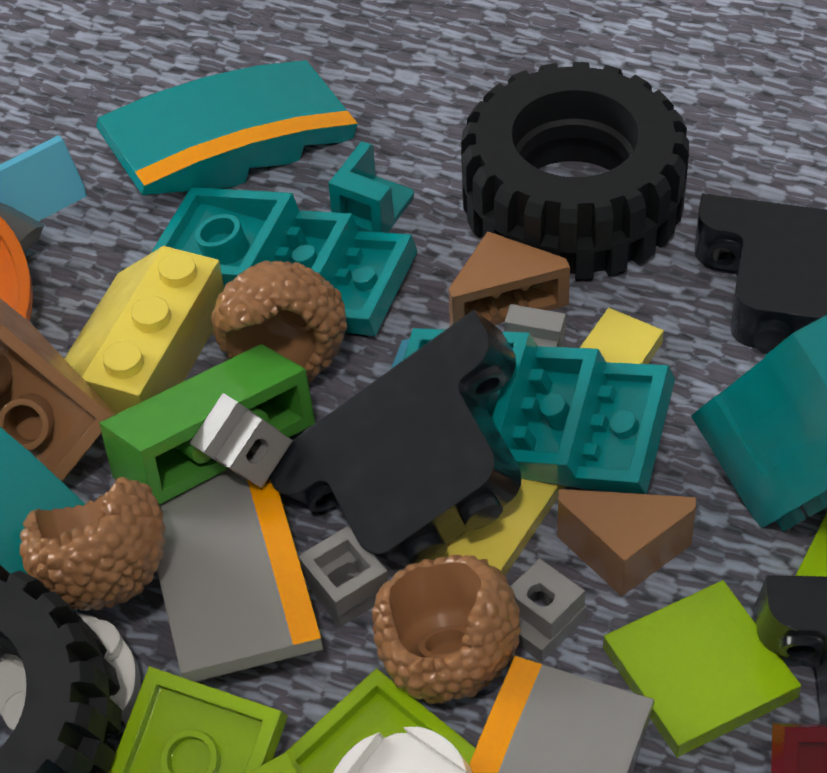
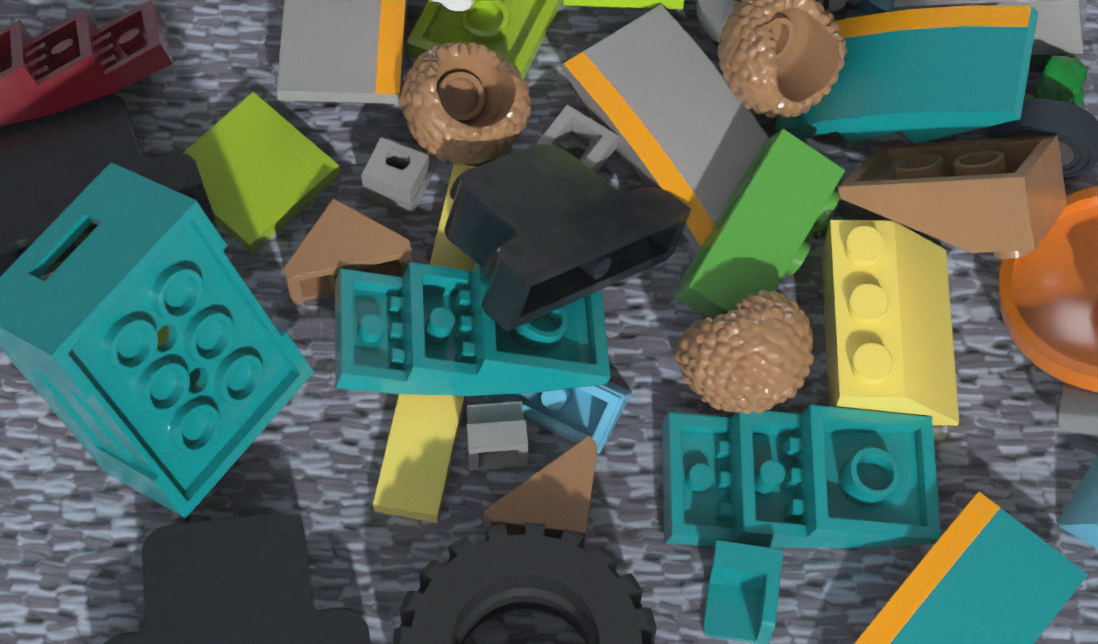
camera: 155 degrees right, 15 degrees up
(241, 441) = (709, 196): light grey piece -> none

